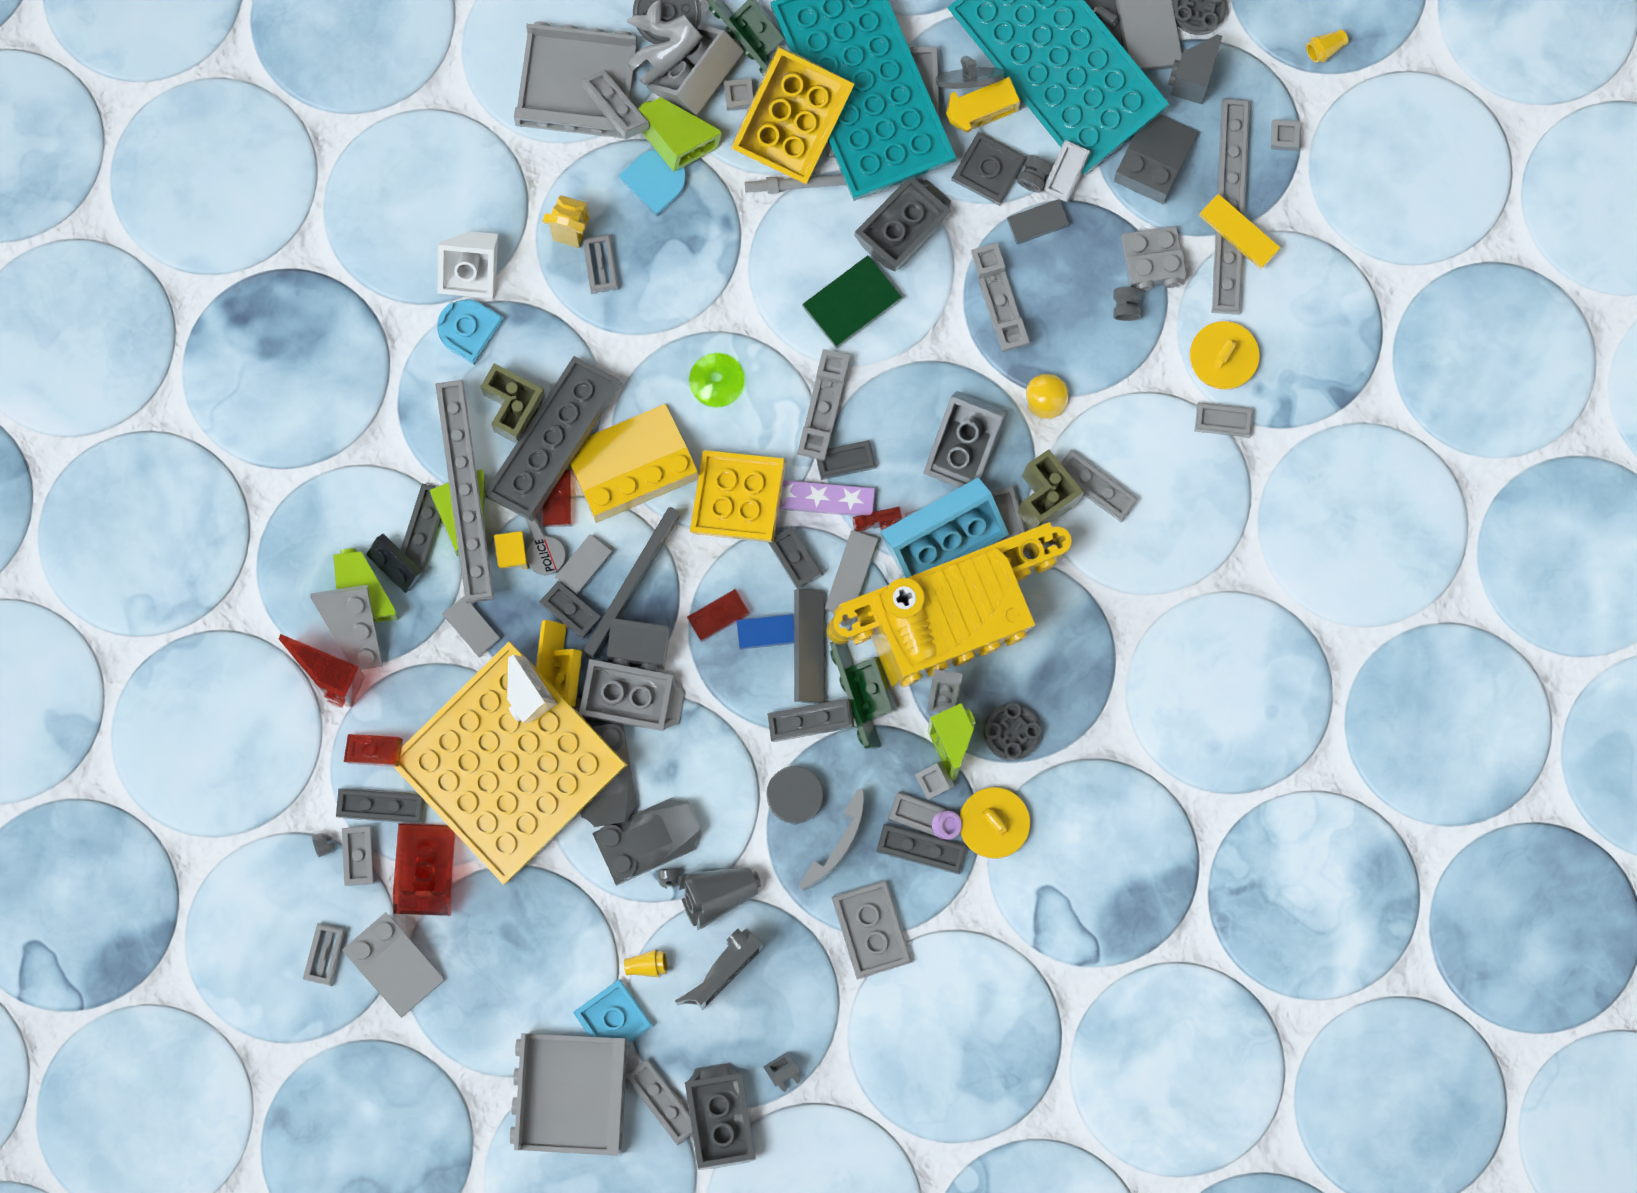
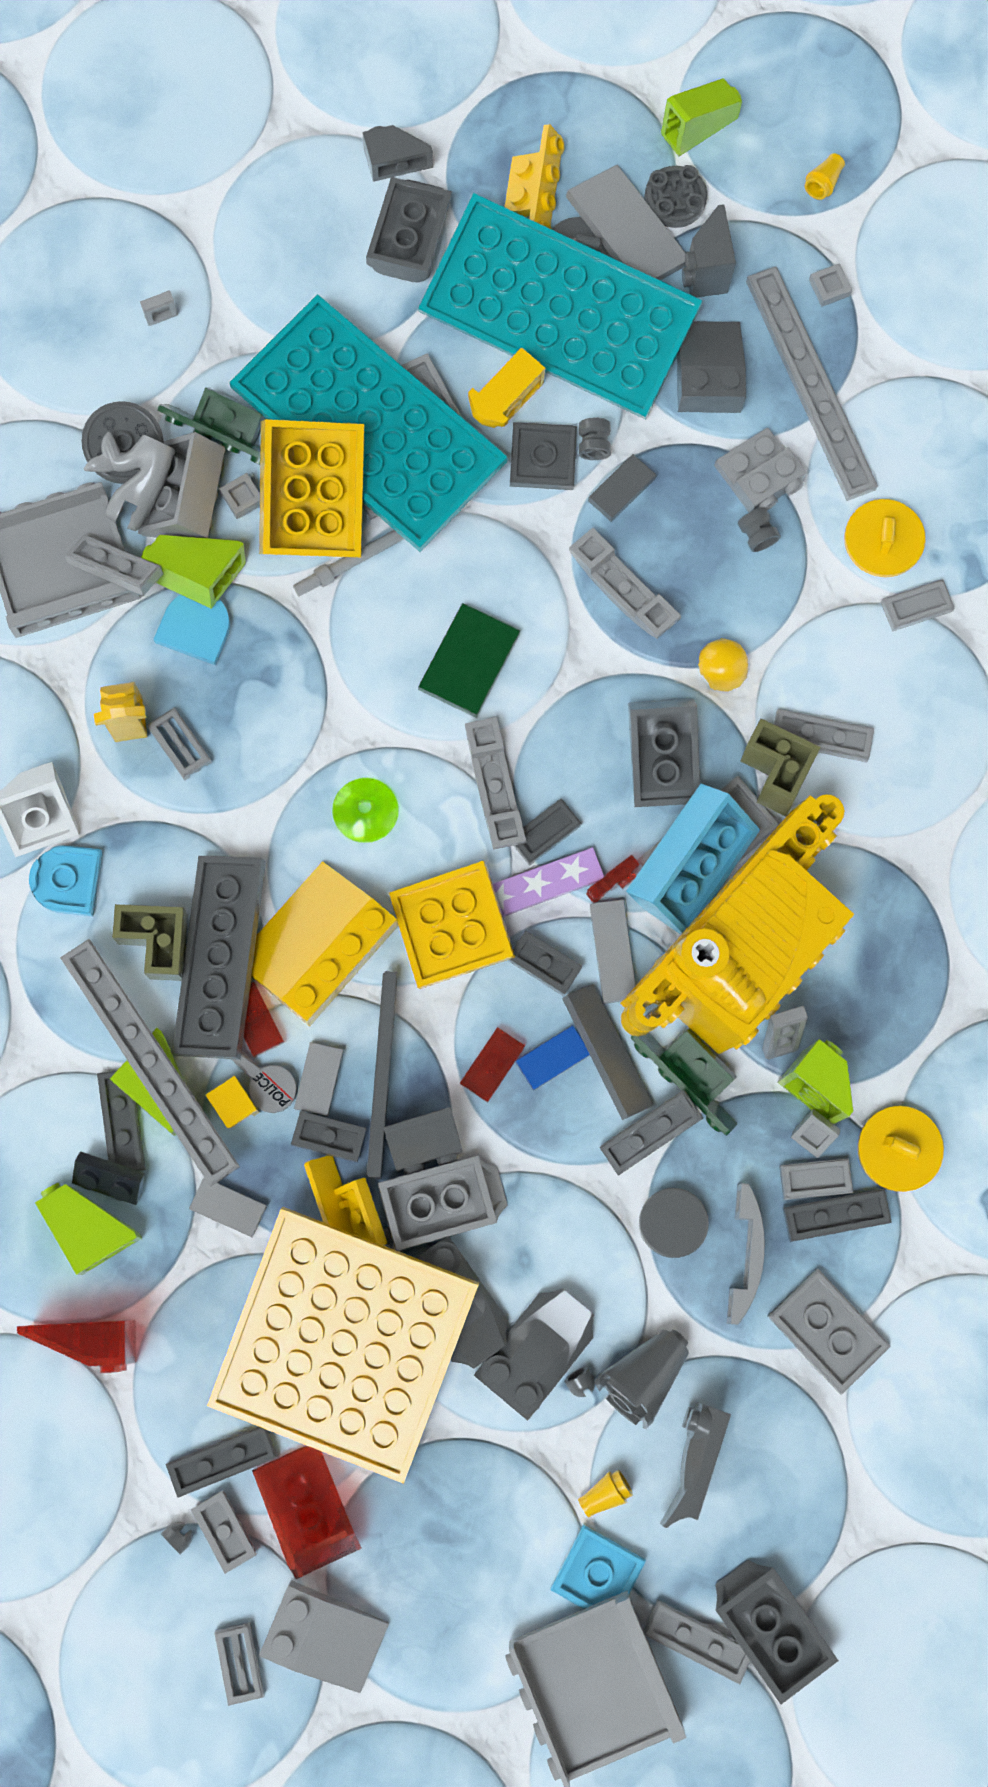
camera: 30 degrees left, 0 degrees up
(352, 623) = (92, 1271): light grey wing -> none
(373, 750) = (184, 1402): clear red plate -> none
(526, 691) = (329, 1257): white slope -> none
(781, 1070) = (813, 1540): dark grey tile -> none
(903, 222) = (483, 552): dark grey slope -> none
(946, 825) = (853, 1176): lavender tile -> none
(969, 76) = (479, 368): dark grey shield -> none
(1012, 732) = (869, 1040): dark grey tile -> none
(1066, 171) = (627, 420): tile -> none
(1239, 231) = (836, 402): yellow tile -> none

